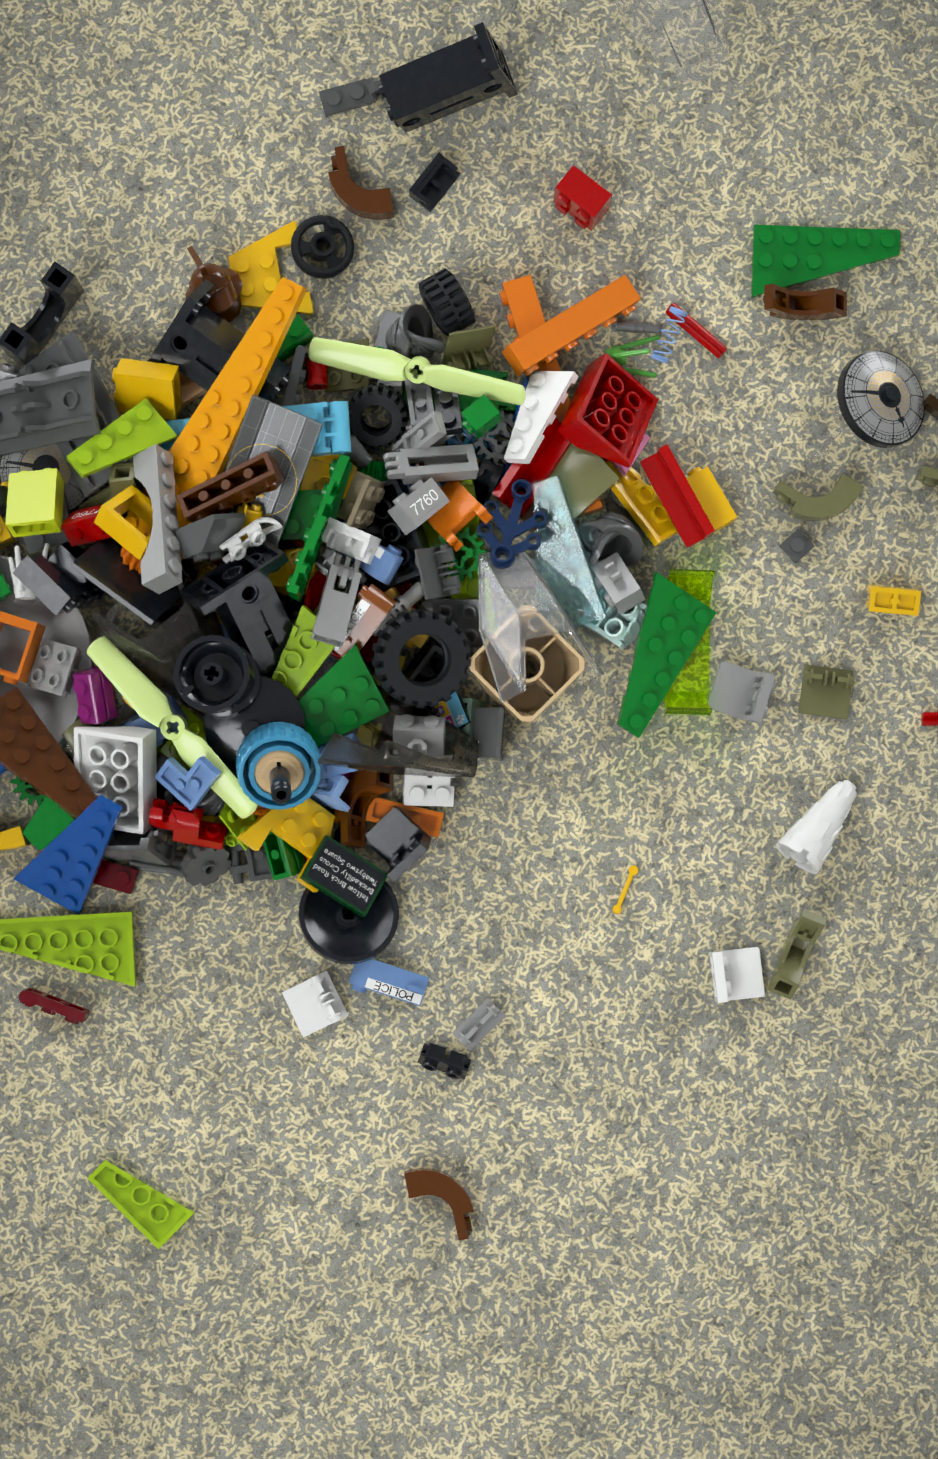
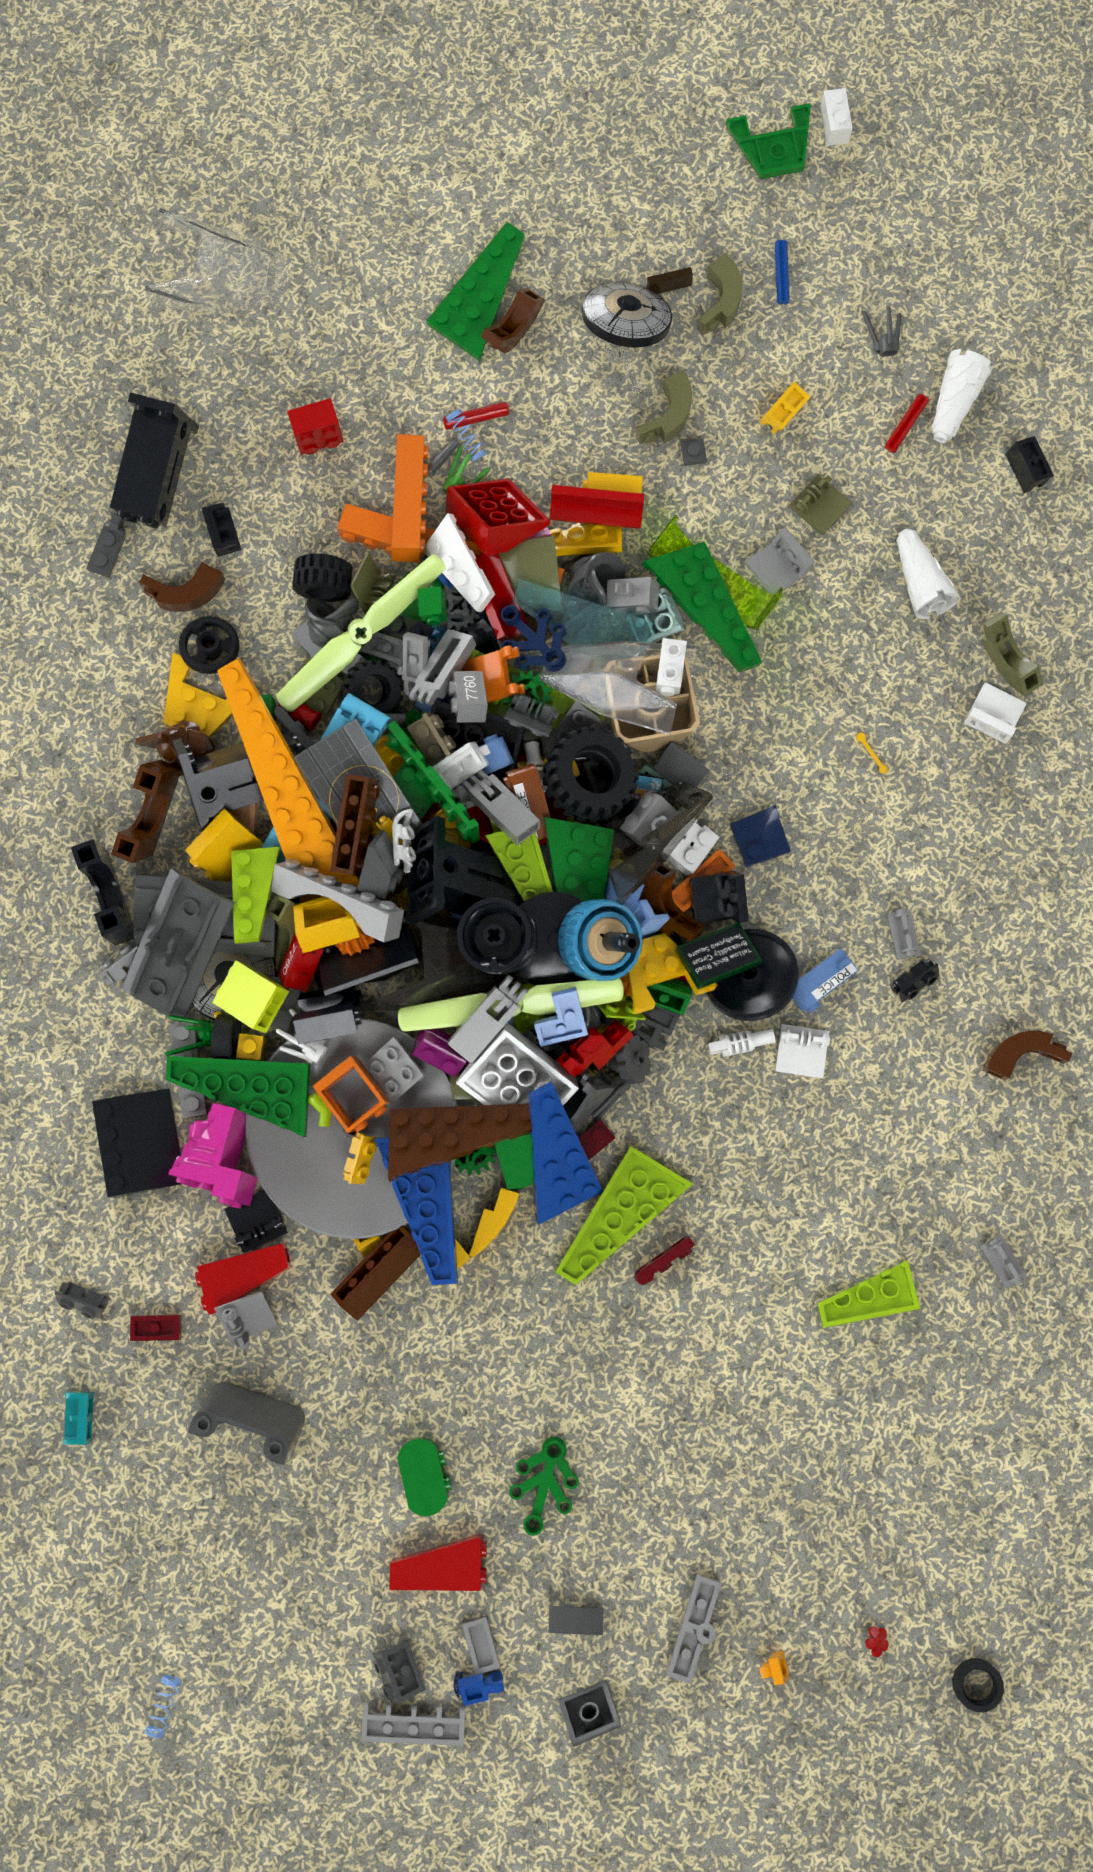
camera: 50 degrees left, 5 degrees down
(131, 717) = (480, 1026): none -> light grey hinge
(158, 295) = (159, 783): none -> reddish brown arch
(249, 1296) = (1003, 1261): none -> light grey hinge
(286, 946) = (741, 1042): none -> white hinge
(480, 842) = (760, 837): none -> dark blue plate
(561, 662) = (671, 667): none -> white brick

